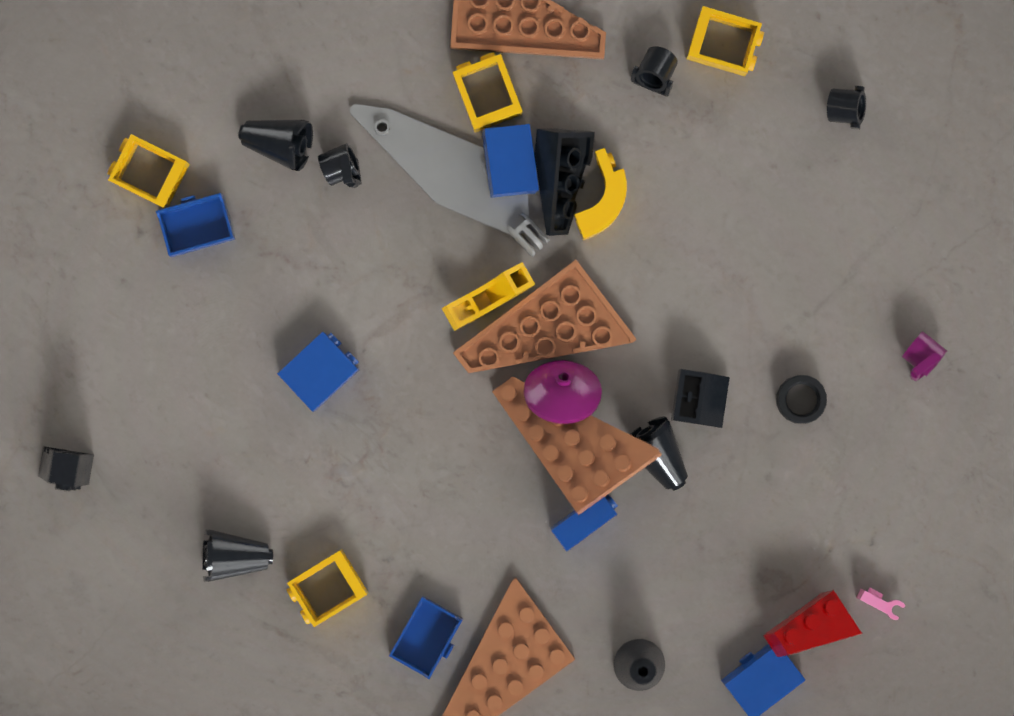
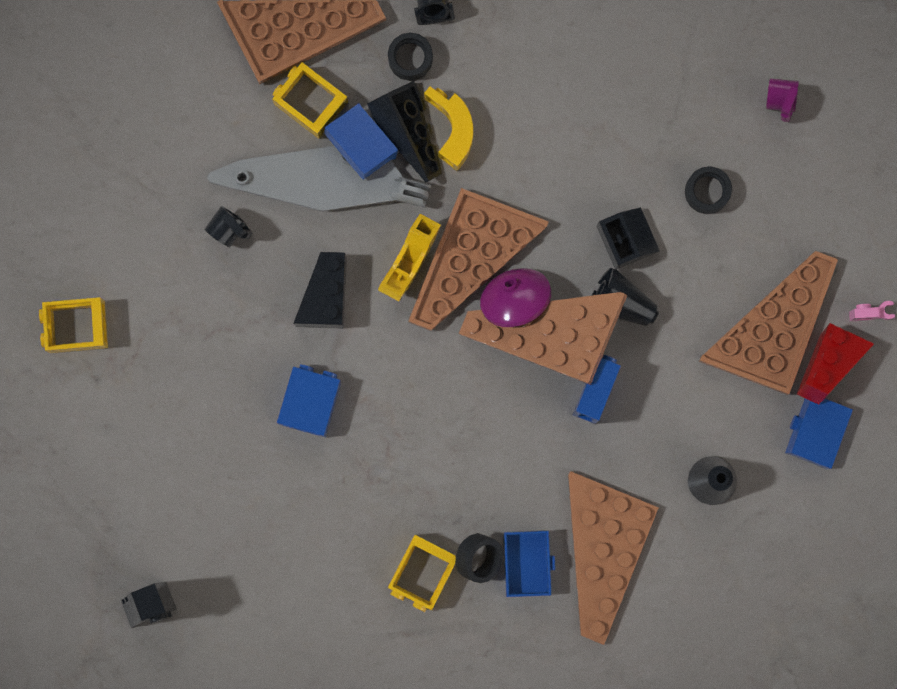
camera: 30 degrees left, 5 degrees down
(195, 224) = (138, 344): blue container -> none
(233, 556) = (329, 593): black cone -> none
(279, 140) = (165, 236): black cone -> none
(390, 619) = (492, 562): none -> black tyre
(393, 281) = (325, 294): none -> black wedge
(609, 88) = (407, 38): none -> black tyre
(779, 567) = (775, 333): none -> nougat wing

